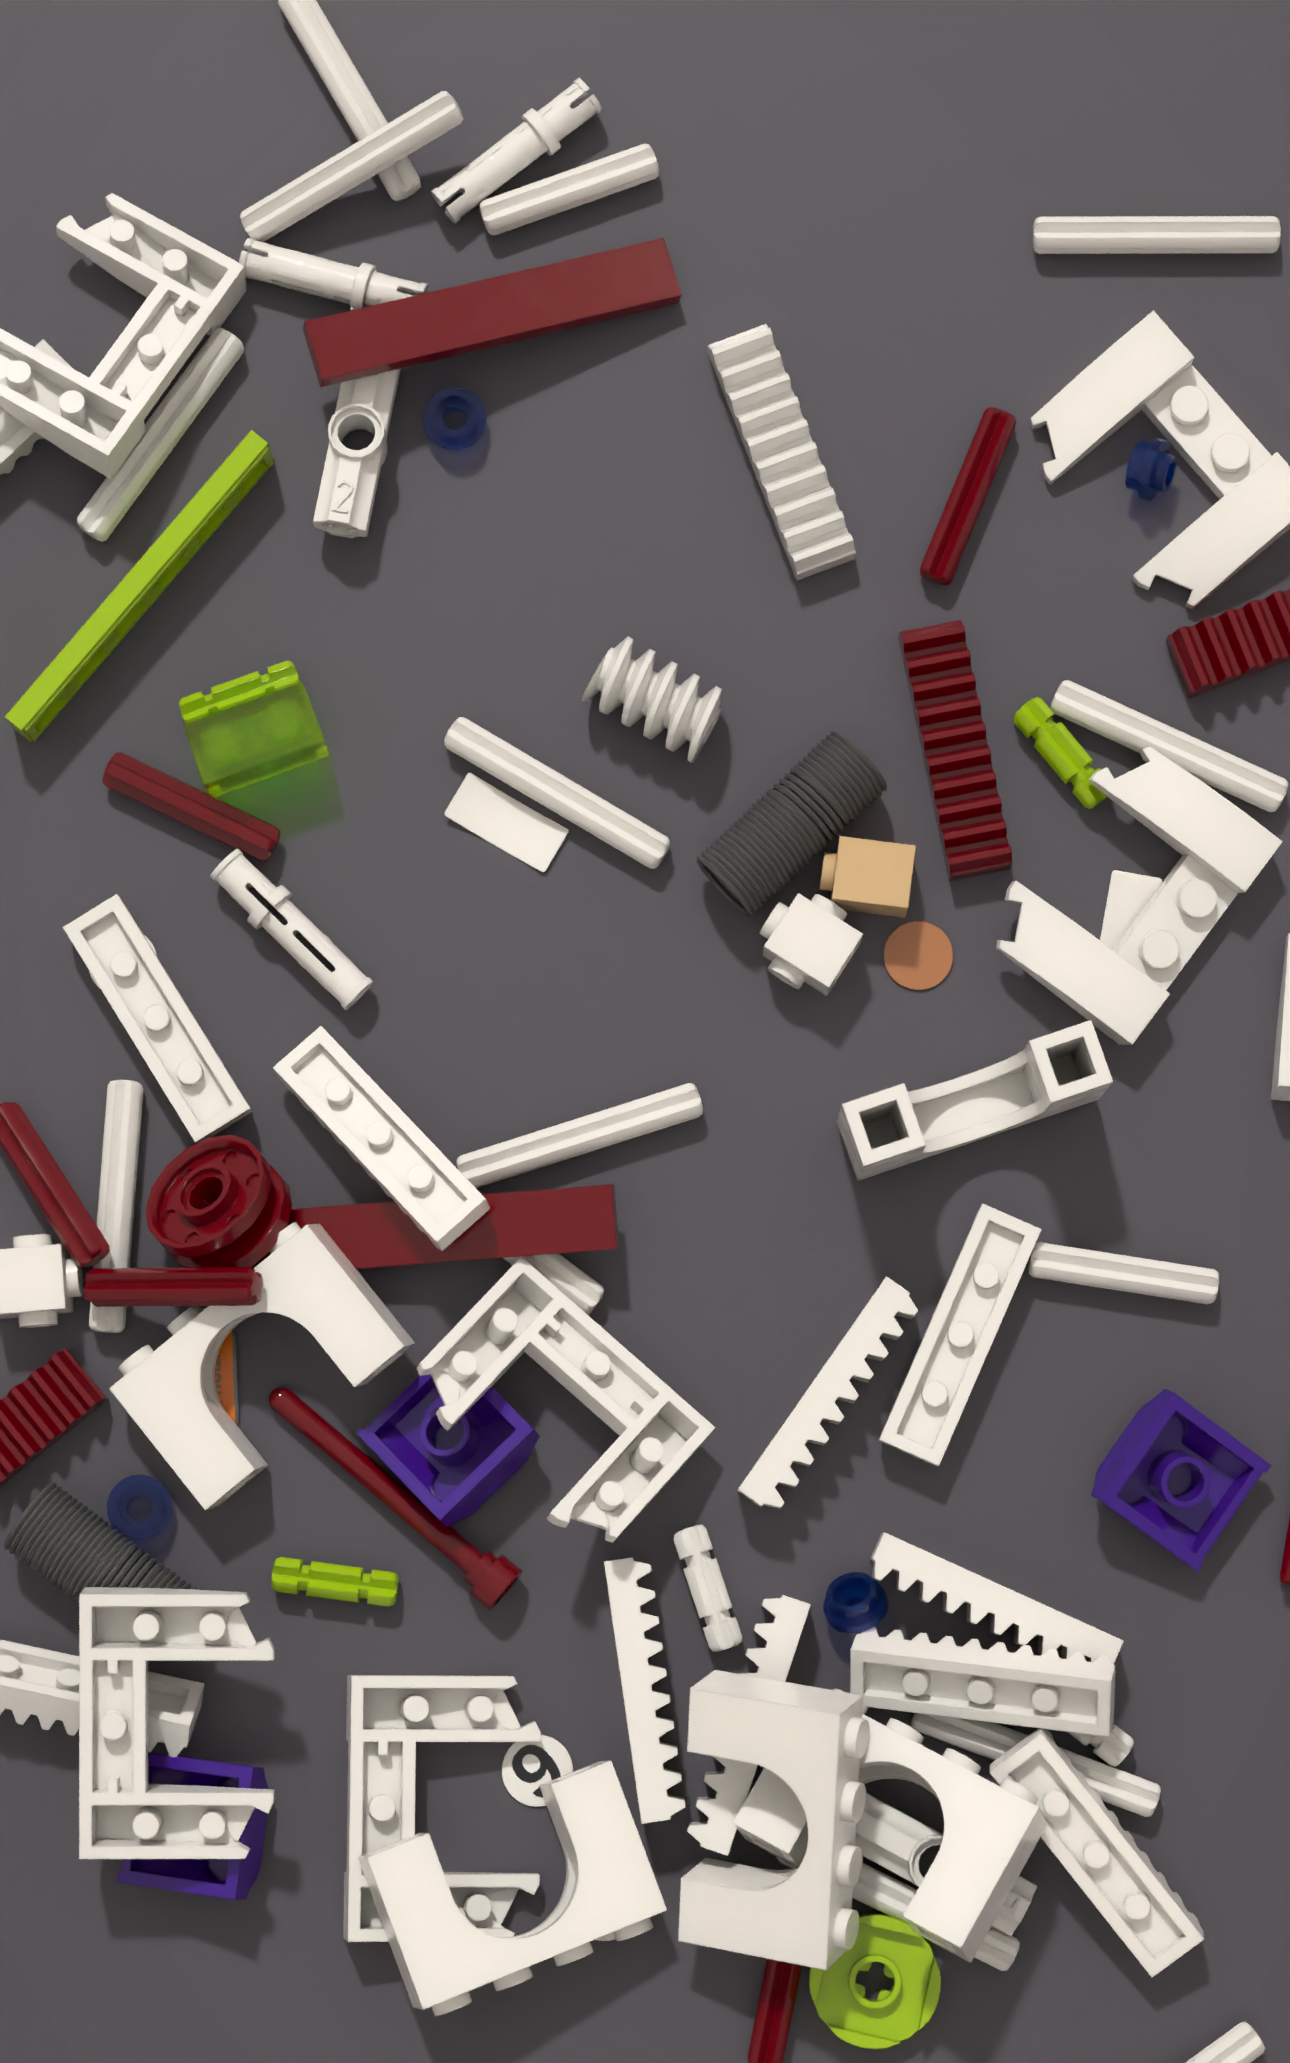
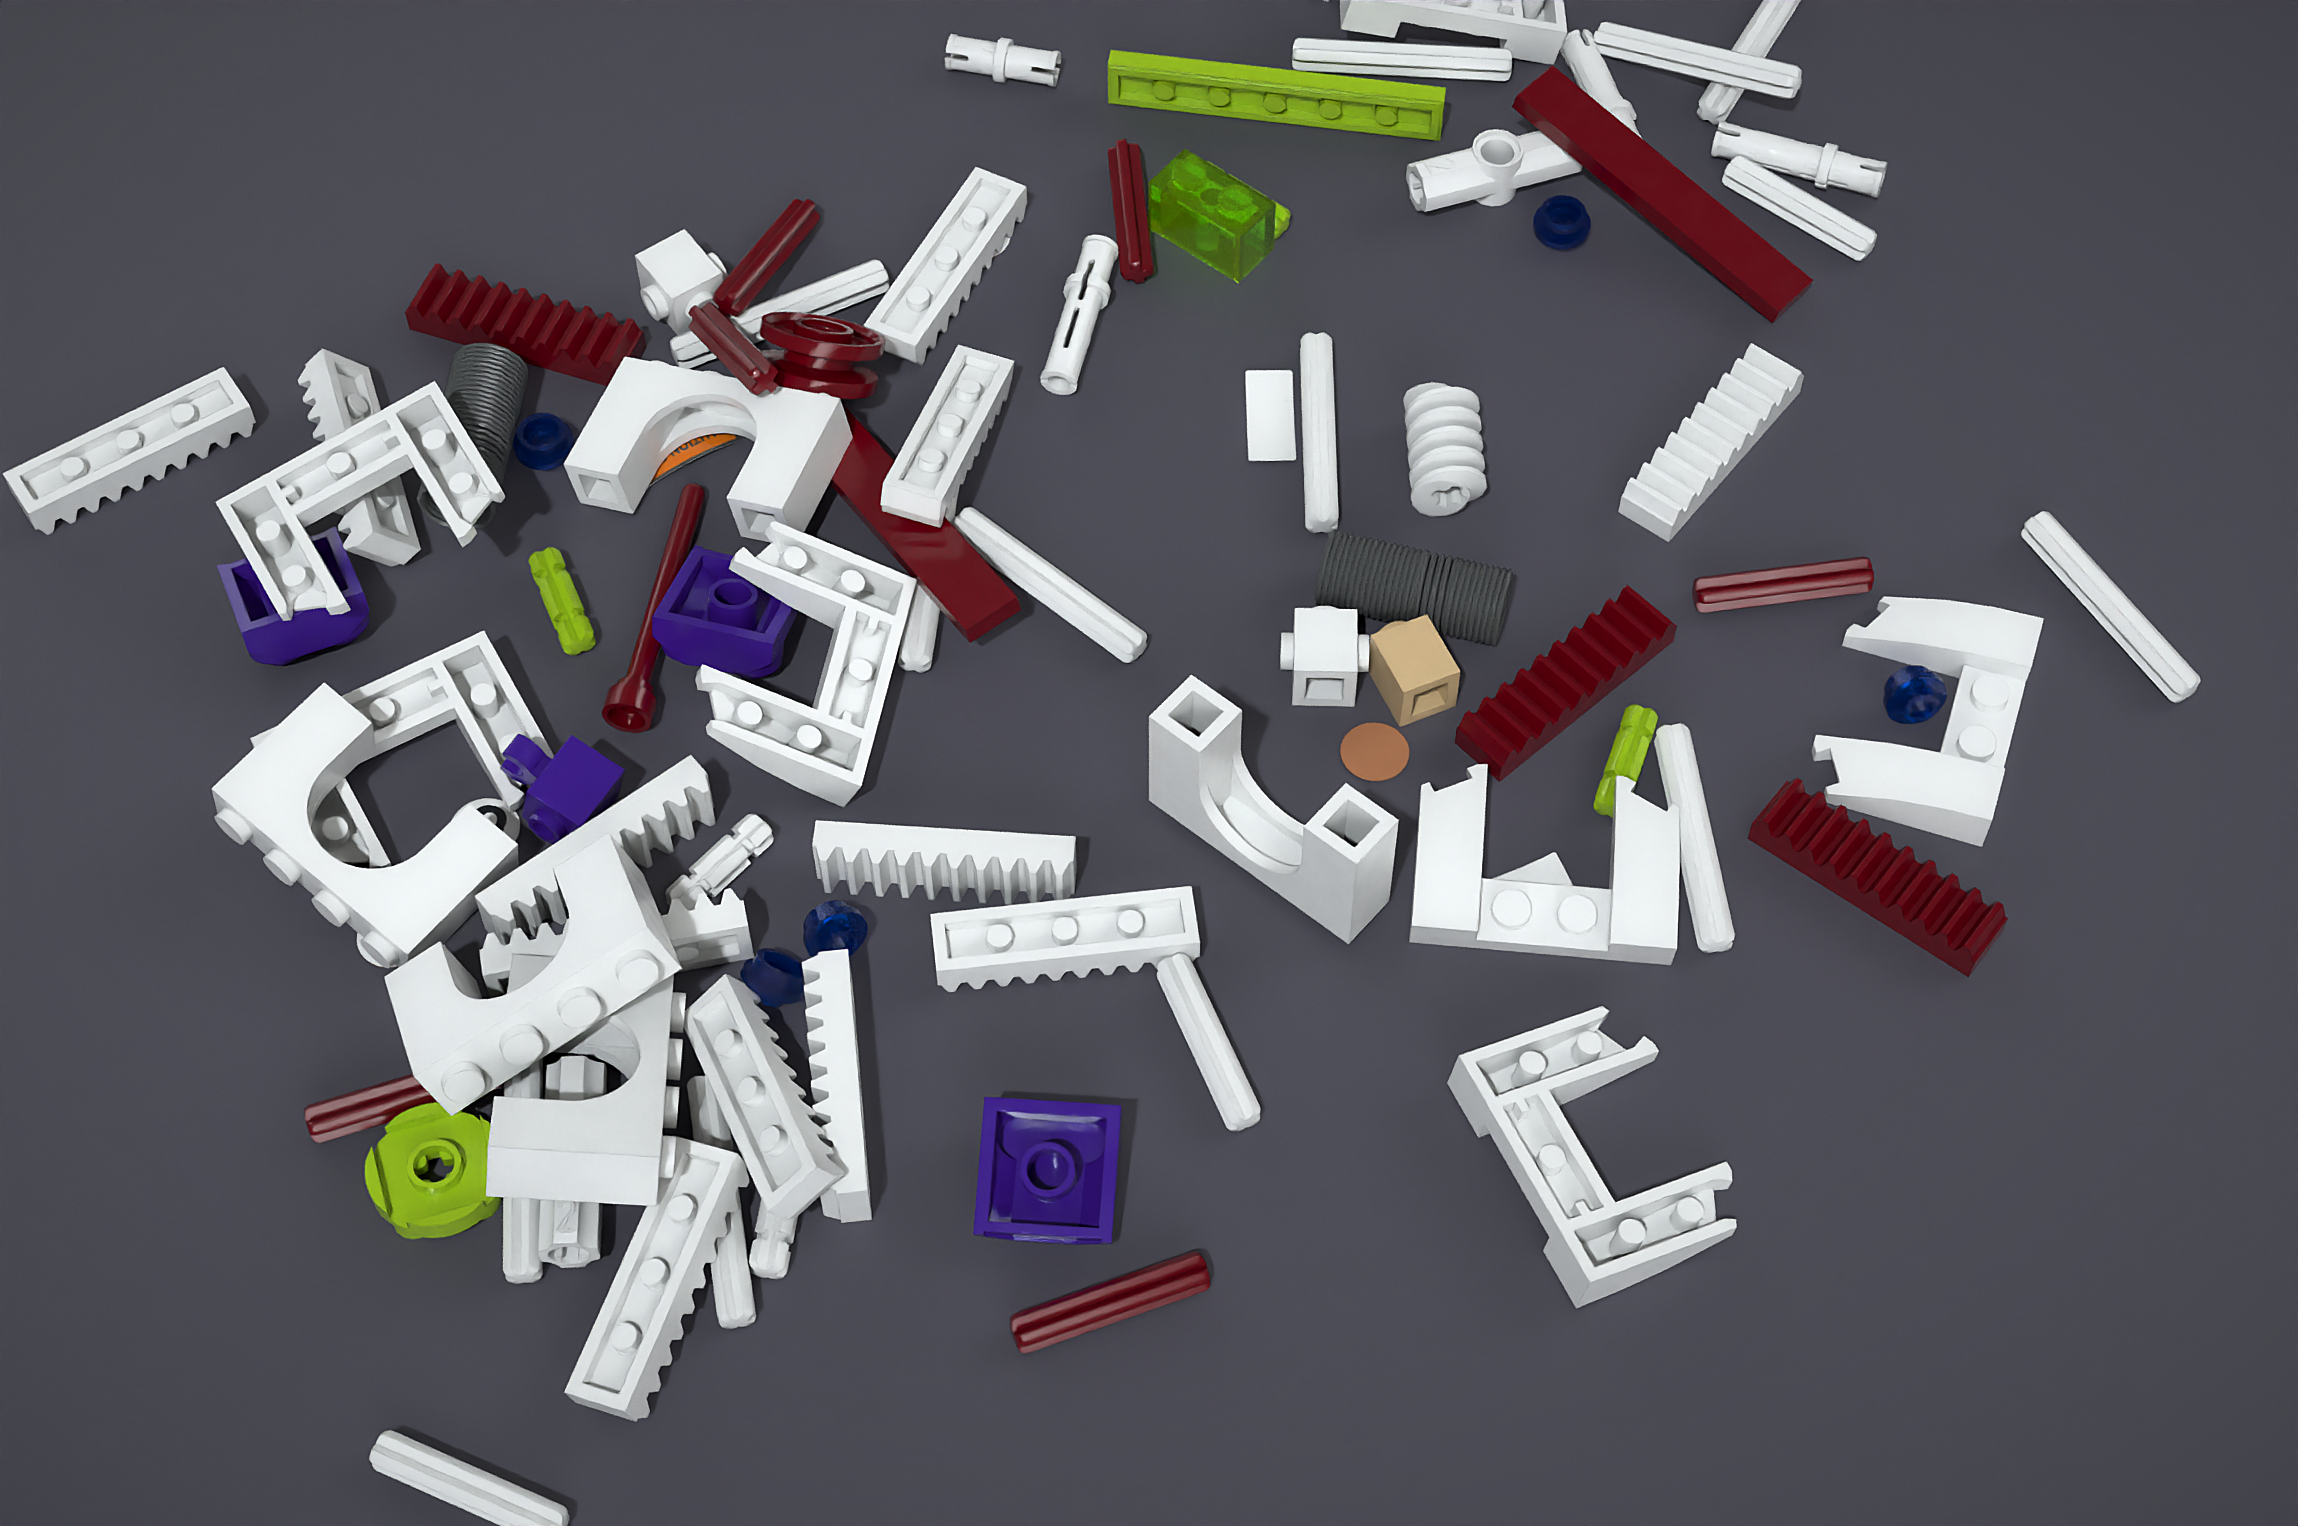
camera: 55 degrees right, 25 degrees down
(563, 1684) = (562, 789): none -> dark purple brick
(840, 1527) = (834, 927): none -> clear blue plate

